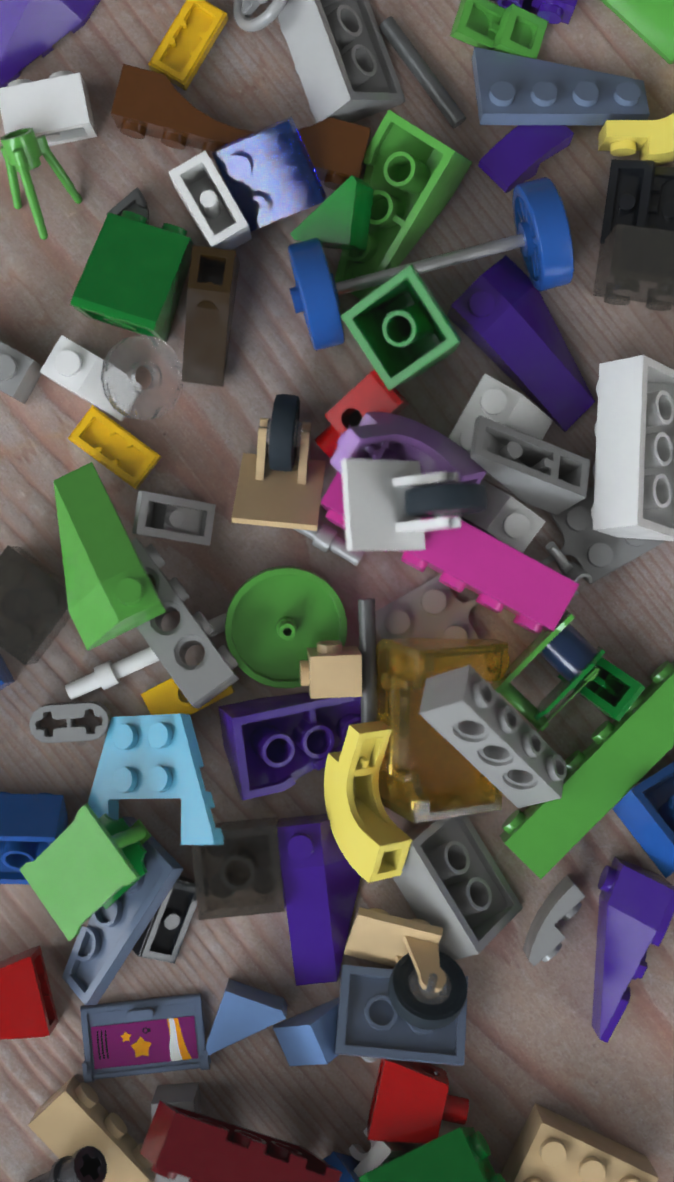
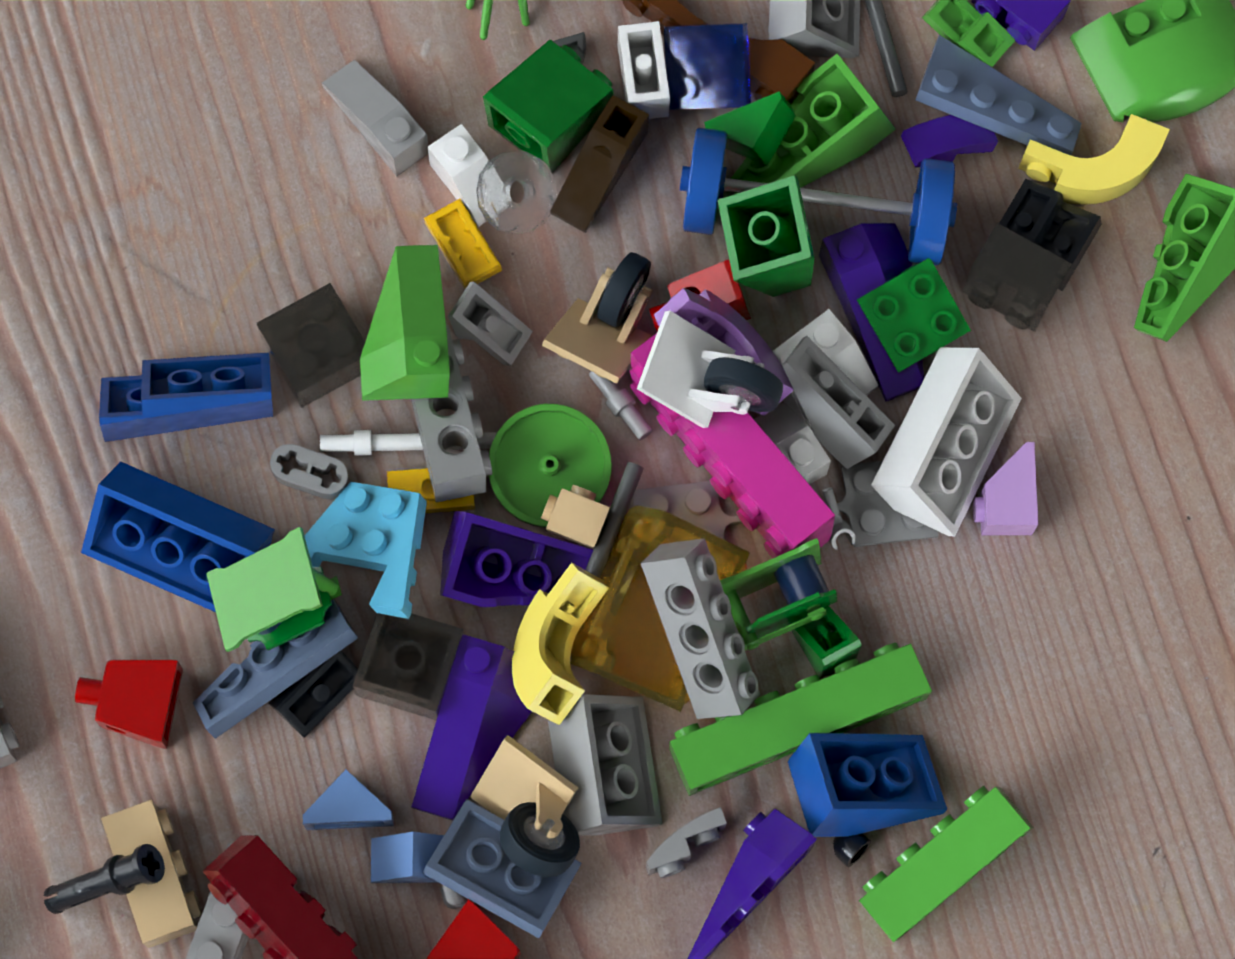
camera: 25 degrees right, 15 degrees down
(141, 1042) = (242, 802): door -> none
(563, 342) = (913, 314): none -> green hinge

